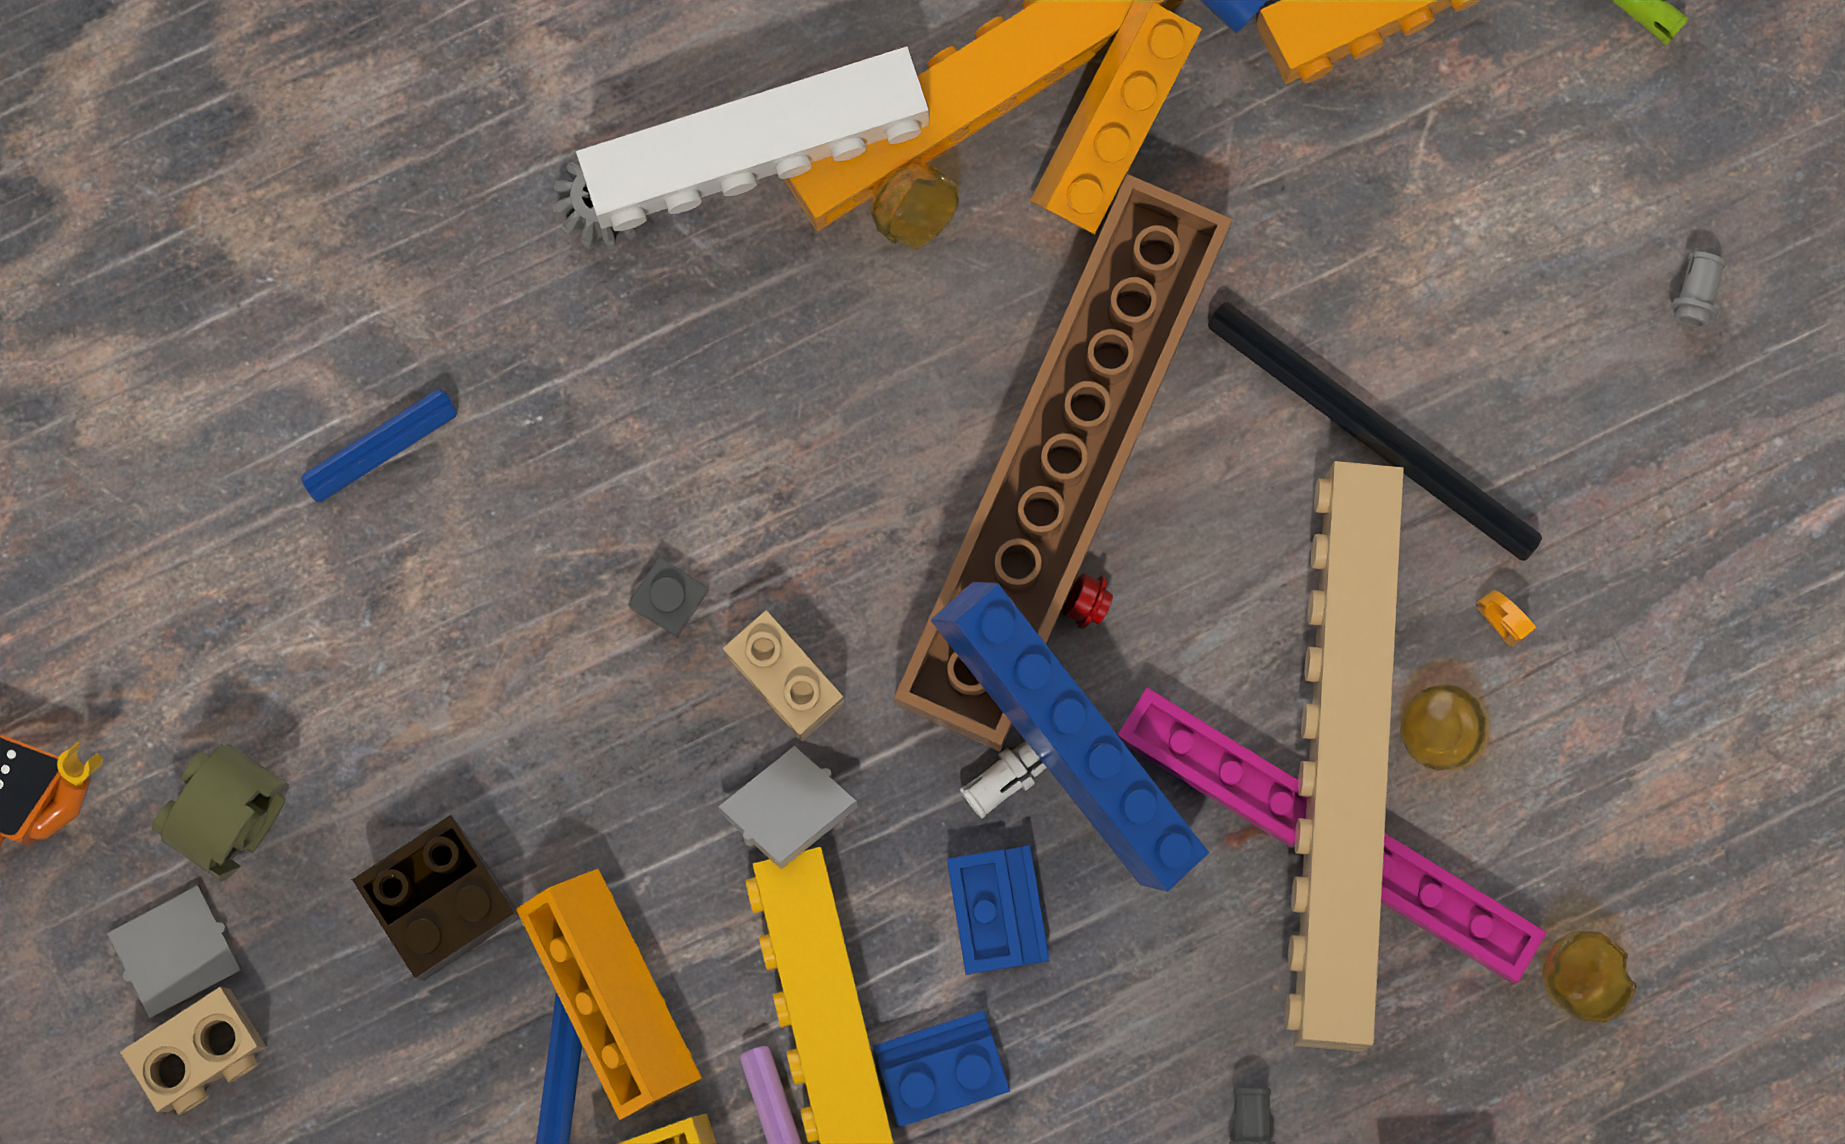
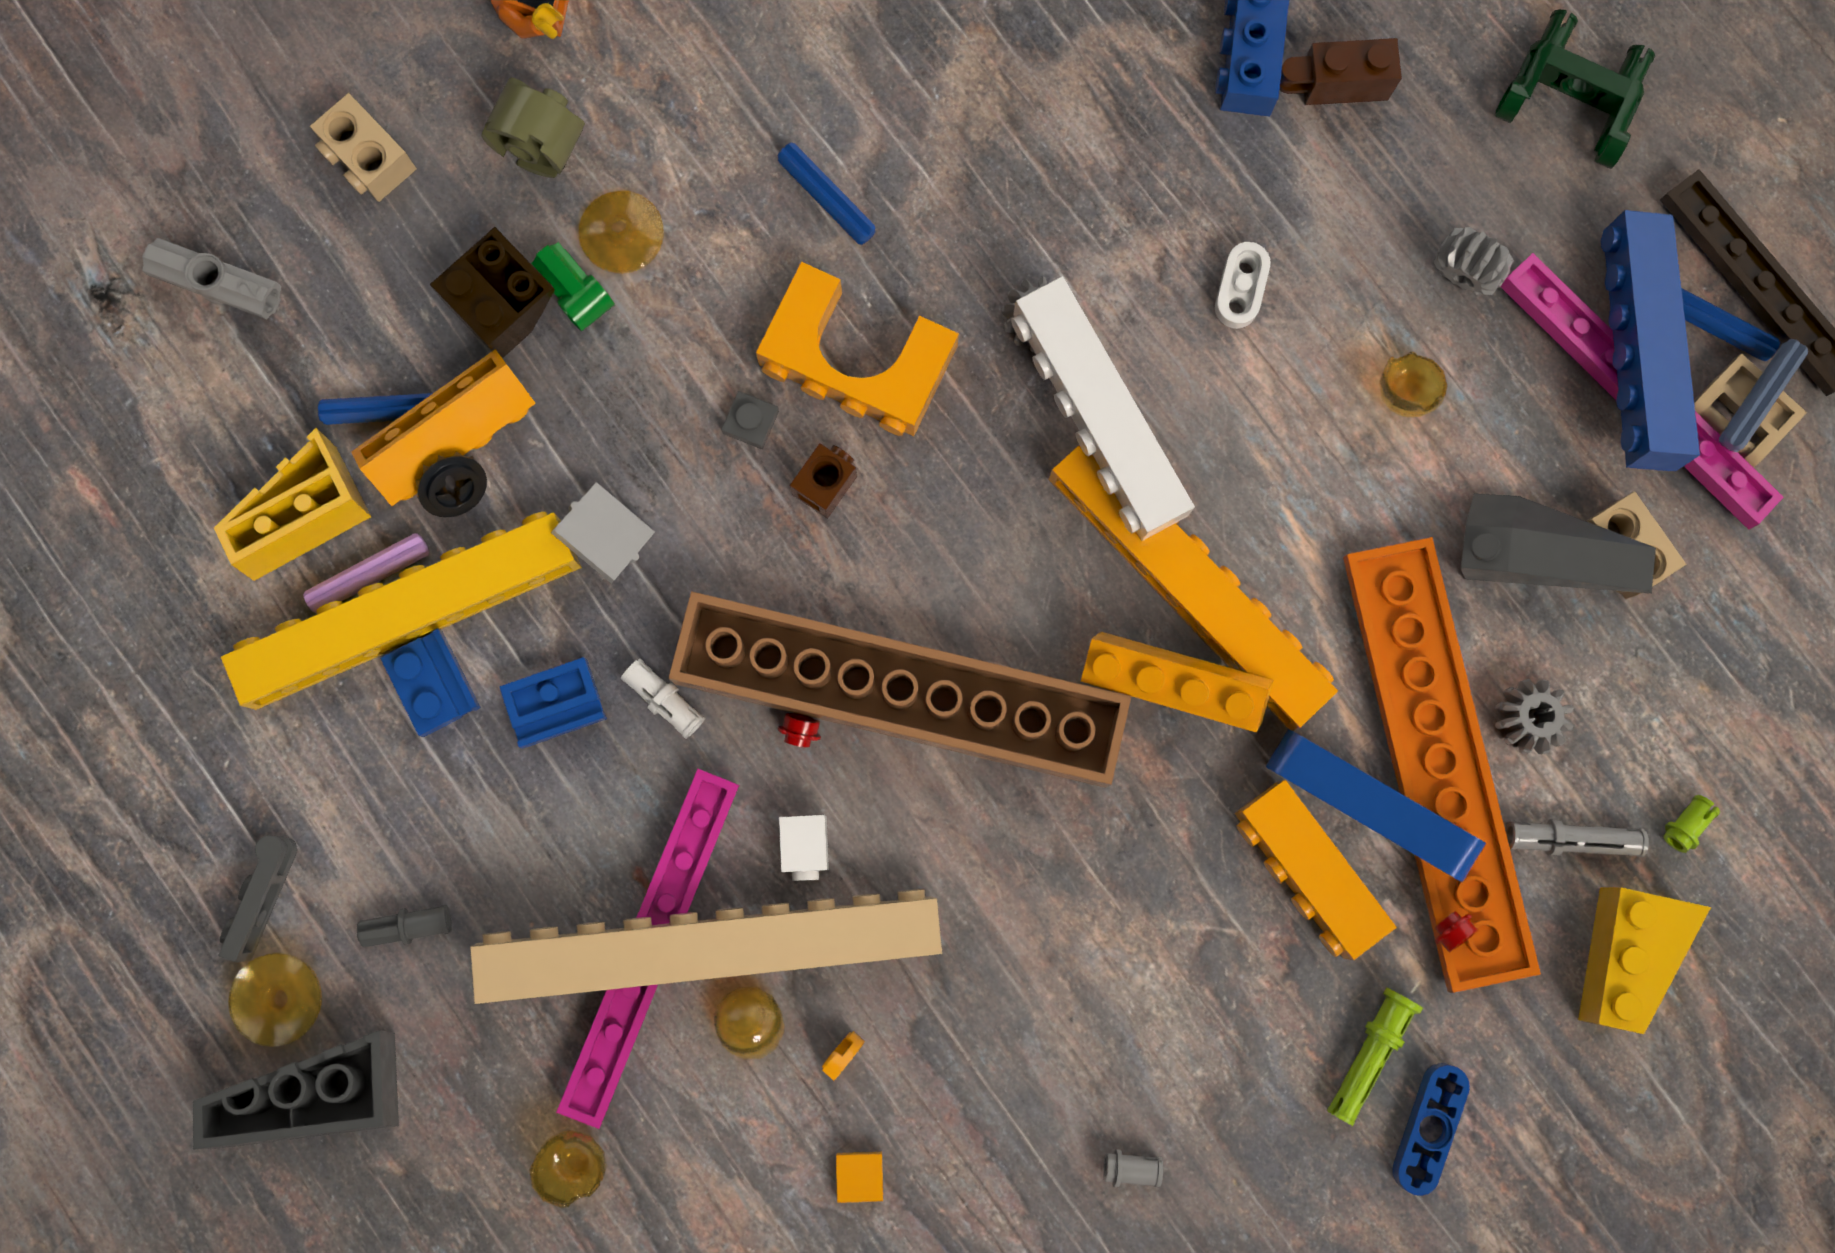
camera: 75 degrees right, 0 degrees up
(174, 952) = (436, 125): light grey piece -> none
(399, 743) = (626, 249): none -> clear yellow dish
(459, 788) = (577, 294): none -> green piece
(591, 519) = (893, 397): none -> light orange arch
(687, 976) = (469, 485): none -> black gear
(784, 676) = (701, 511): tan brick -> none
(787, 530) = (818, 497): none -> reddish brown brick
(914, 204) = (1079, 543): clear yellow hair -> none
(1069, 735) = (681, 727): blue brick -> none
(1238, 619) = (804, 846): none -> white brick
(1374, 431) = (971, 929): black axle -> none
(1655, 623) = (859, 1177): none -> light orange tile

